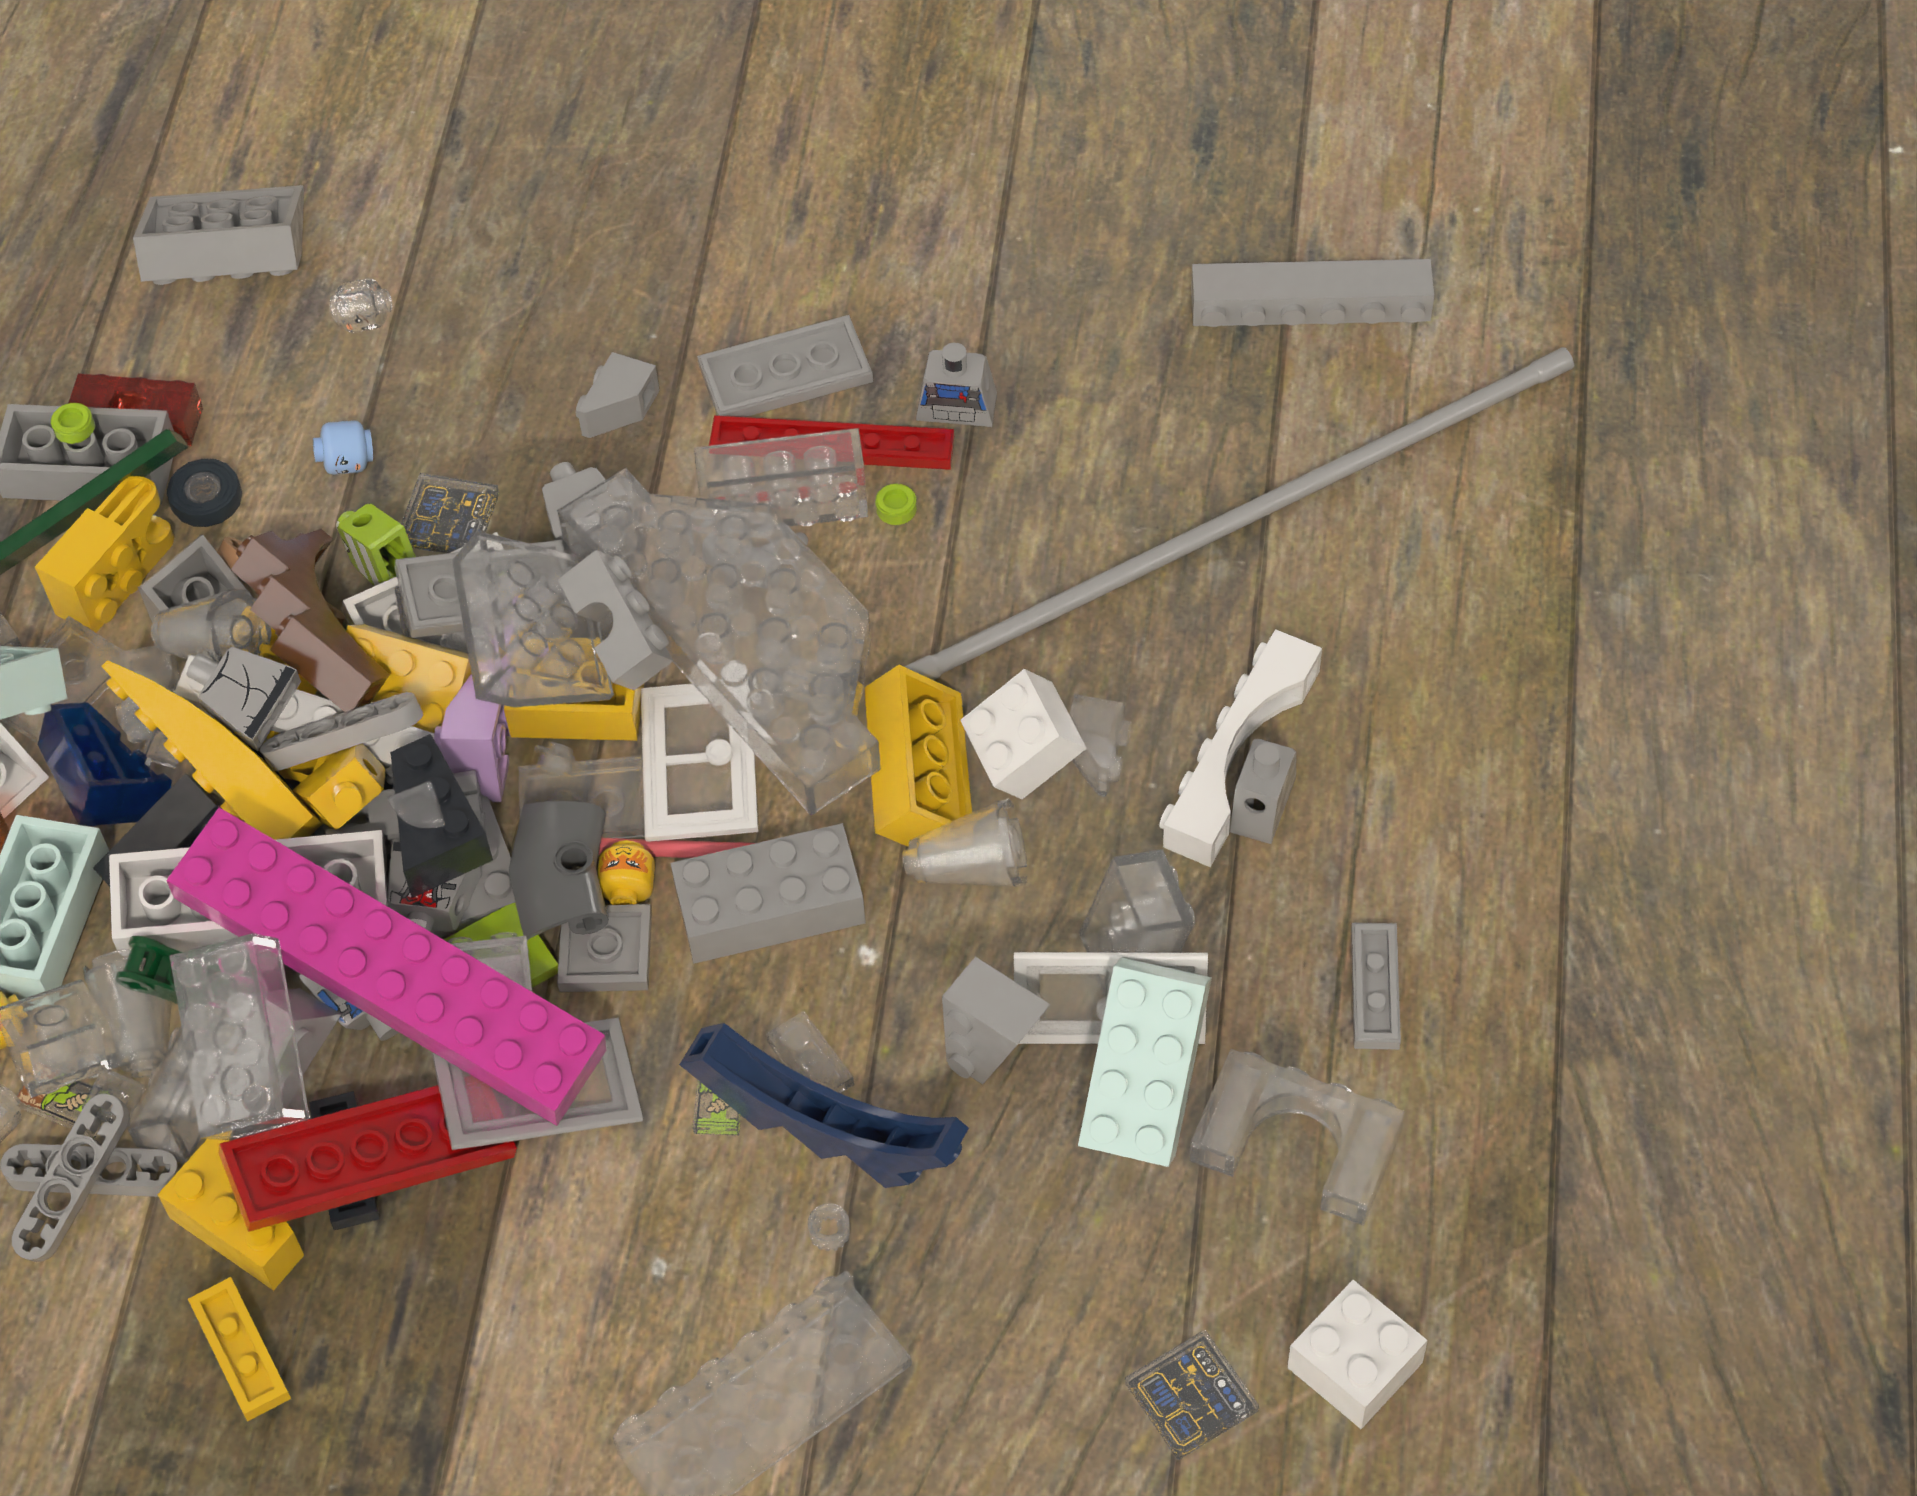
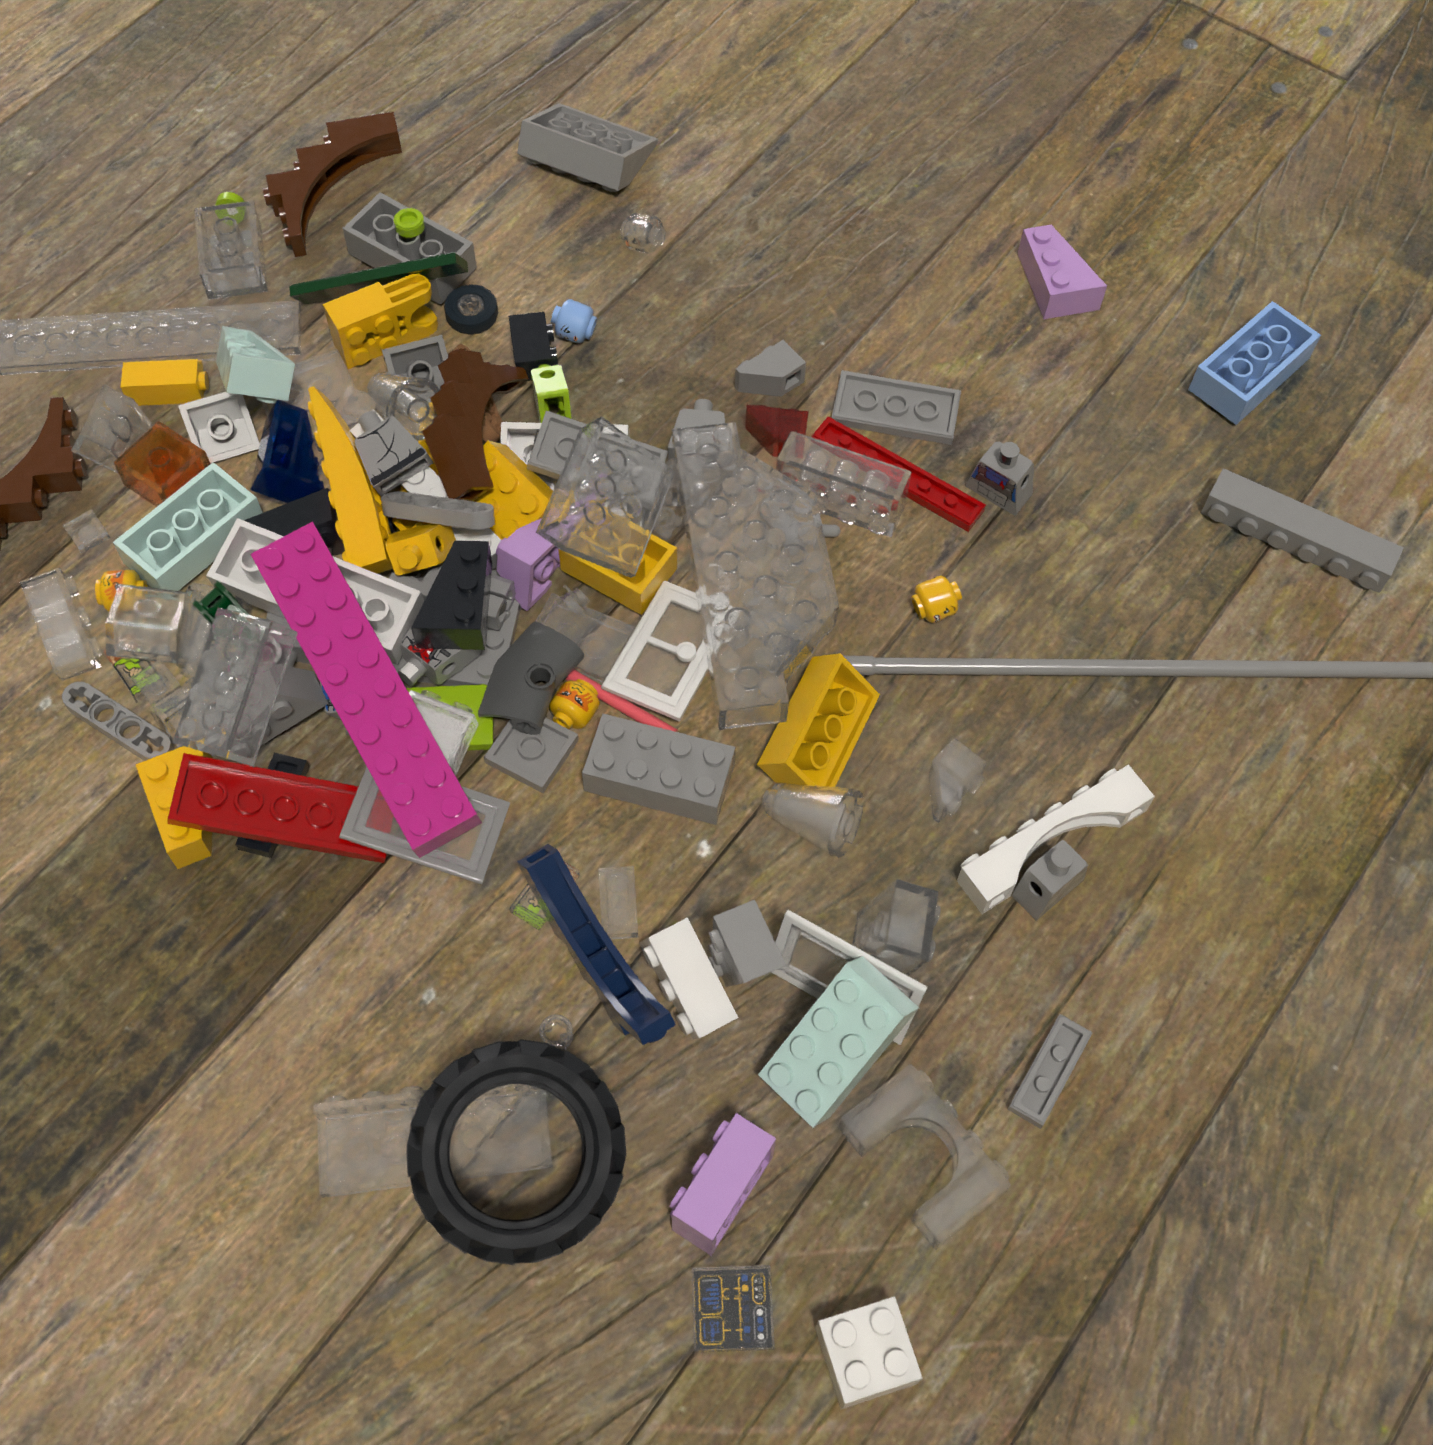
camera: 25 degrees right, 5 degrees up
(77, 1181) = (94, 718): light grey beam -> none
(175, 397) = (487, 240): clear red arch -> none
(239, 1349) = (126, 899): yellow plate -> none
(308, 496) = (531, 341): none -> black brick
(418, 806) = (446, 588): clear tile -> none
(447, 512) = (614, 396): clear tile -> none
(635, 644) = (665, 548): light grey arch -> none
(663, 457) = (772, 425): none -> clear red slope
(880, 131) = (1058, 274): none -> lavender wedge
(896, 504) = (915, 538): lime tile -> none
(933, 1082) = (688, 979): none -> white wedge
(934, 1270) = (600, 1167): none -> black tyre
(962, 558) = (936, 599): none -> yellow head
(1023, 734) = (900, 748): white brick -> none
(1106, 1272) = (721, 1183): none -> lavender brick
(1157, 131) = (1254, 362): none -> light blue brick

